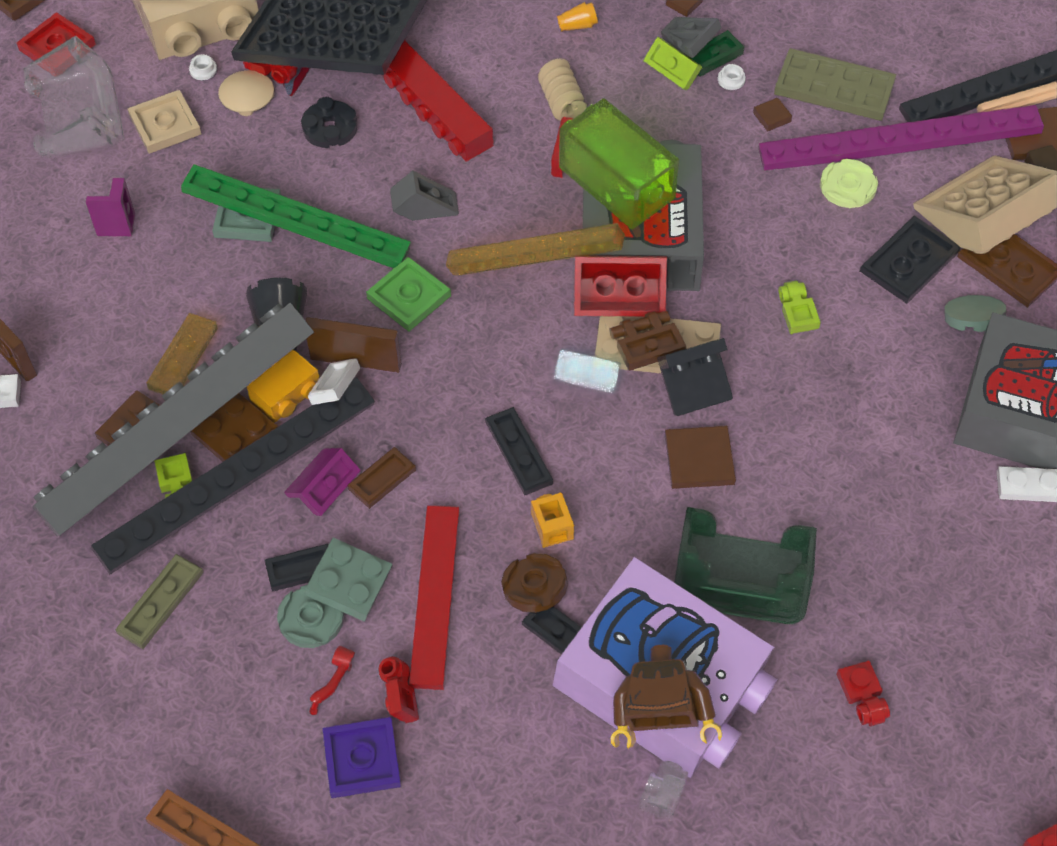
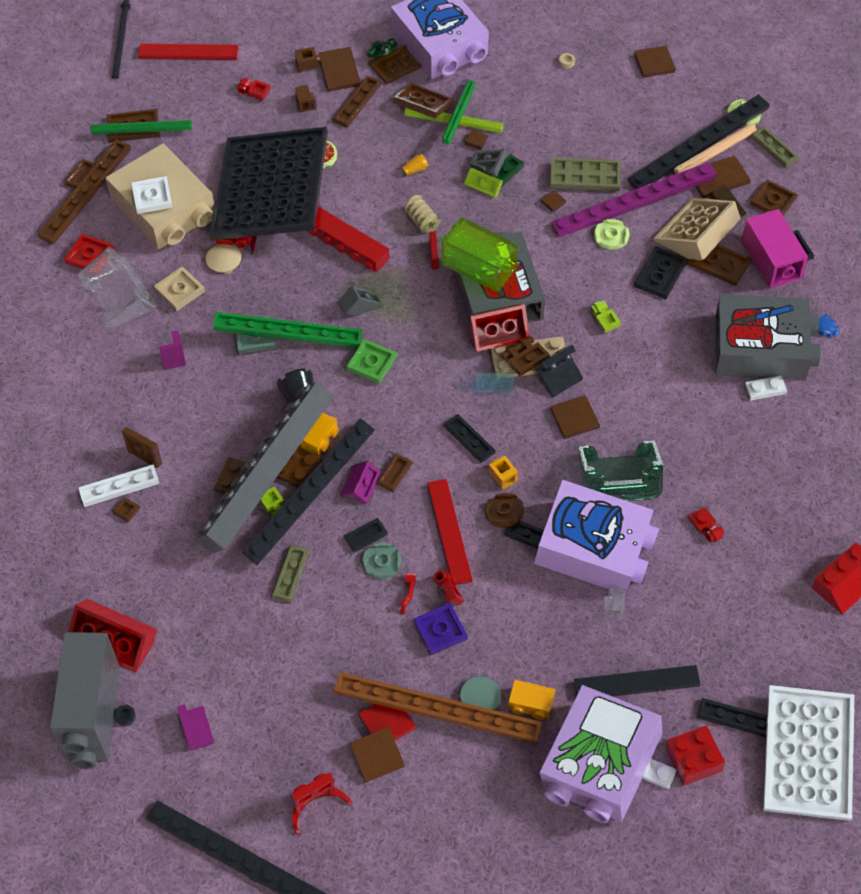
camera: 15 degrees left, 0 degrees up
(182, 353) = (248, 429): clear yellow plate -> none
(202, 67) = (189, 245): white plate -> none
(329, 110) = (281, 258): black plate -> none
(334, 381) = (348, 423): white tile -> none
(342, 341) = (355, 399): reddish brown tile -> none
(348, 579) = (397, 534): sand green plate -> none
(536, 249) = (442, 317): clear yellow piece -> none
(661, 697) = (602, 550): reddish brown torso -> none
(731, 77) = (521, 183): white plate -> none
(972, 311) = (706, 296): sand green tile -> none

